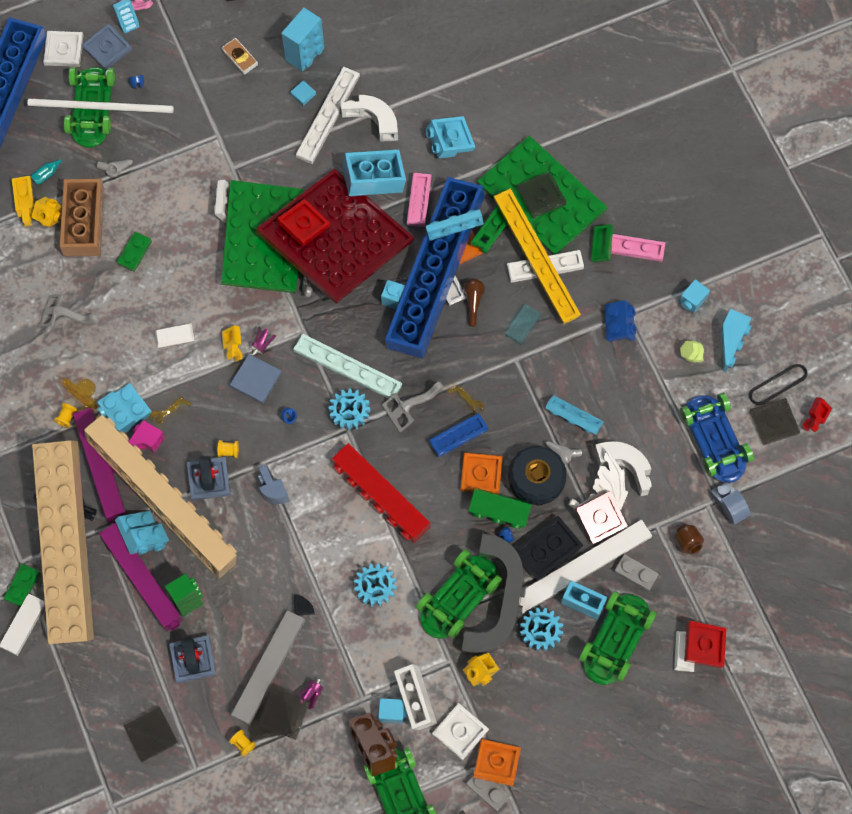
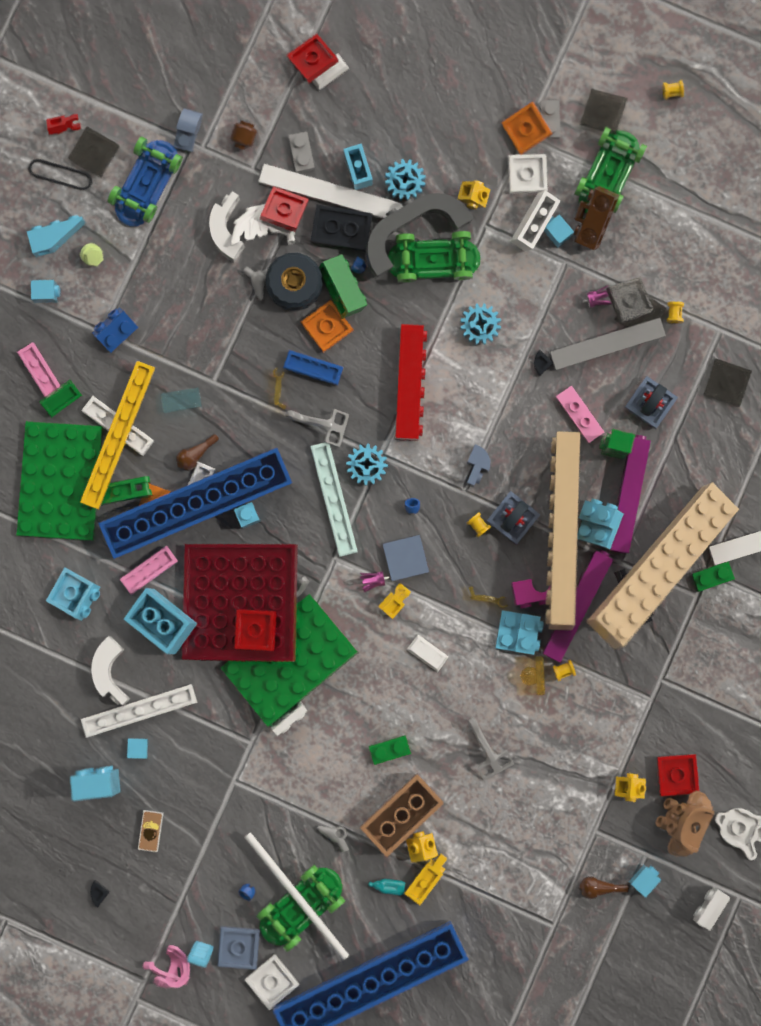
camera: 135 degrees left, 15 degrees up
(236, 598) = (579, 414): none -> bright pink plate
(454, 224) = (152, 512): medium azure plate -> none
(541, 195) = (62, 477): clear smoke tile -> none
(574, 415) = (221, 297): medium azure plate -> none
(619, 634) = (362, 122): green piece -> none

